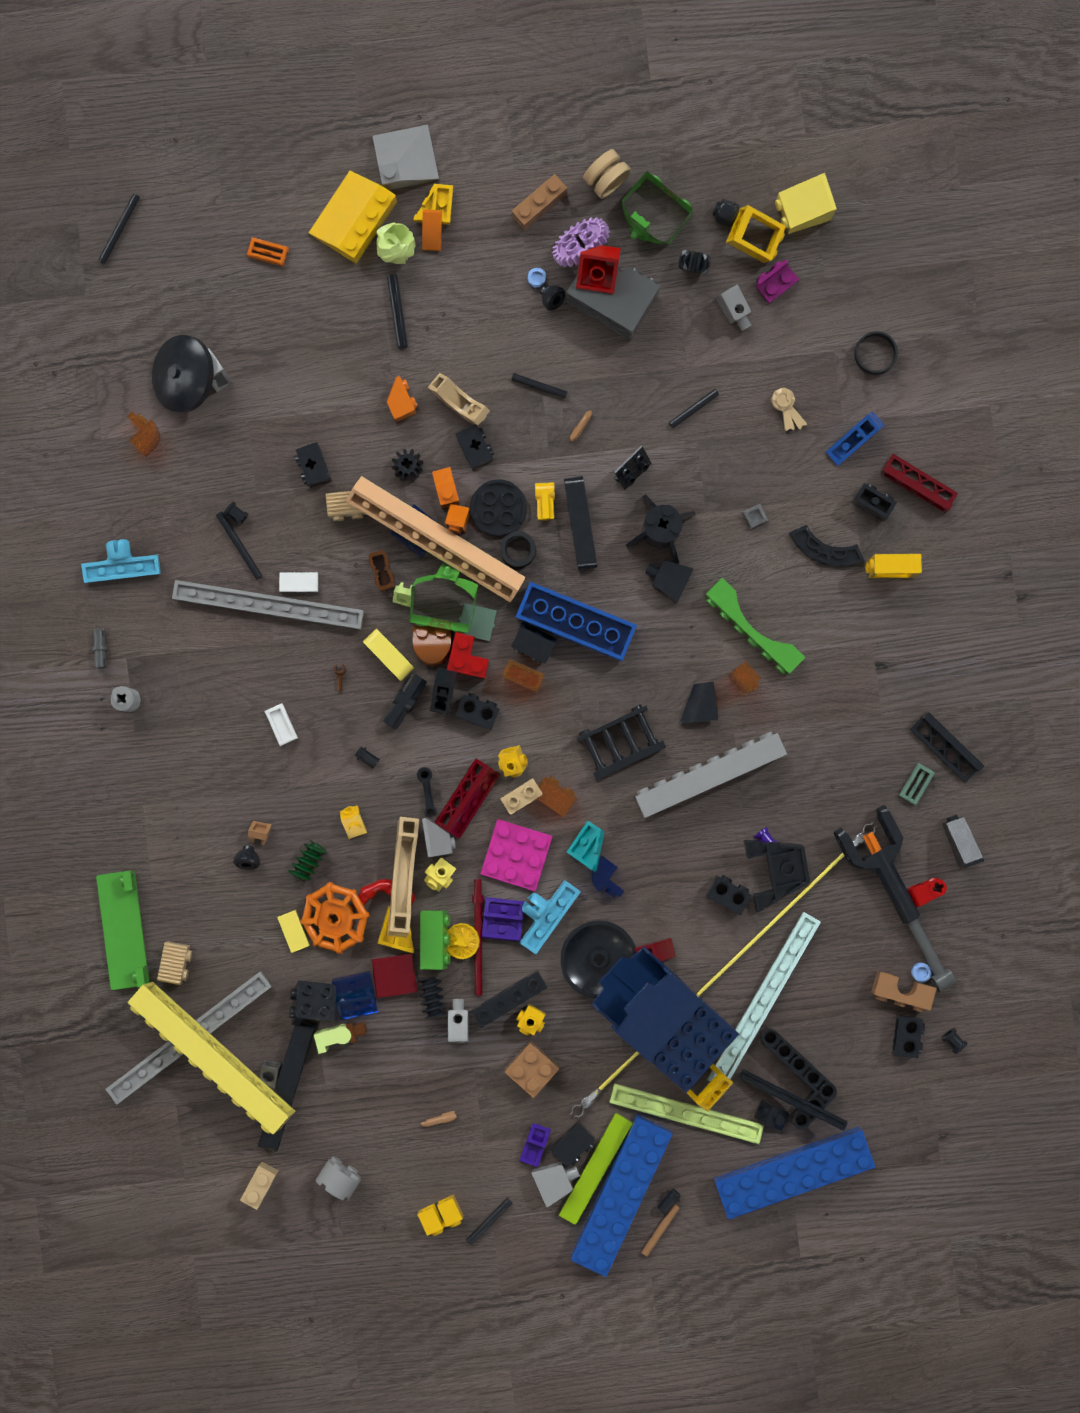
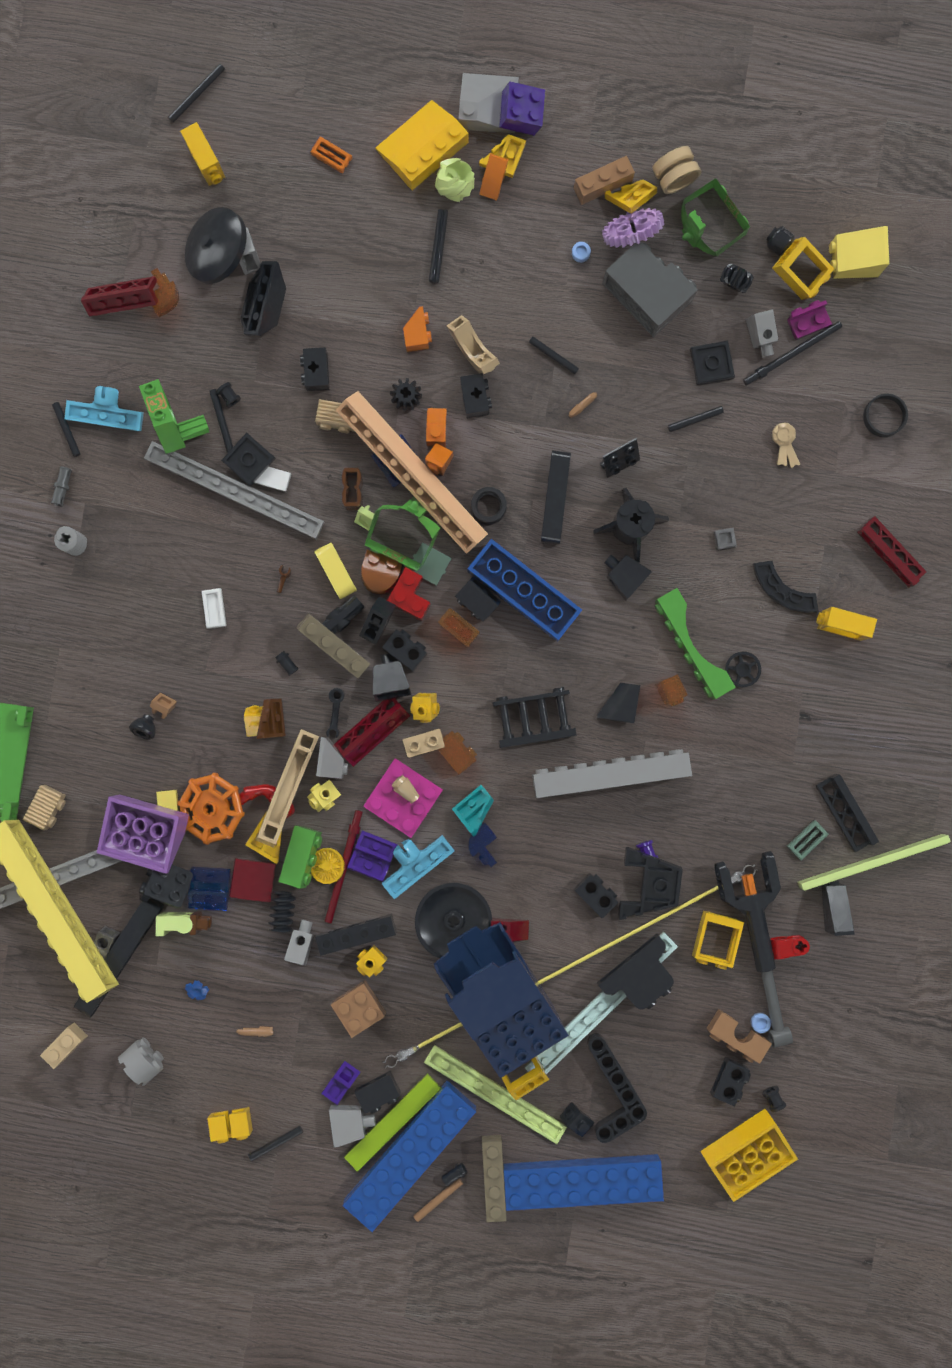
camera: 10 degrees right, 0 degrees up
(88, 592) = (66, 429): none -> black piece
(104, 449) = (120, 296): none -> dark red fence
(144, 288) = (203, 154): none -> yellow window
(191, 566) = (164, 422): none -> bright green piece
(243, 413) = (263, 299): none -> black wedge
(273, 571) = (248, 459): none -> black tile
(275, 960) = (141, 833): none -> medium lavender slope
(308, 861) = (201, 746): dark green piece -> none
(368, 815) = (271, 719): none -> reddish brown wing
(371, 1096) = (196, 990): none -> blue plant
(407, 727) = (333, 645): none -> dark tan arch
(440, 155) = (522, 108): none -> dark purple brick
(471, 745) = (389, 680): none -> torso
(498, 508) = (481, 460): black tile -> none
(516, 845) = (405, 789): none -> tan cone
(544, 495) = (528, 462): yellow piece -> none
(552, 296) = (591, 273): black brick -> none
(571, 210) = (632, 195): none -> yellow wing
(598, 269) = (643, 255): red slope -> none
(694, 349) = (712, 362): none -> black tile
(708, 1193) = (493, 1178): none -> dark tan arch
(745, 345) = (761, 372): none -> black bar
(793, 959) = (640, 975): none -> black brick
(794, 1100) = (602, 1112): black axle -> none
(808, 637) = (743, 668): none -> black wheel
(855, 438) = (843, 491): blue slope -> none
(857, 884) = (721, 963): none -> yellow window
(874, 502) = (844, 557): black brick -> none
(946, 1101) = (749, 1155): none -> yellow slope
(985, 787) = (873, 862): none -> yellowish green tile

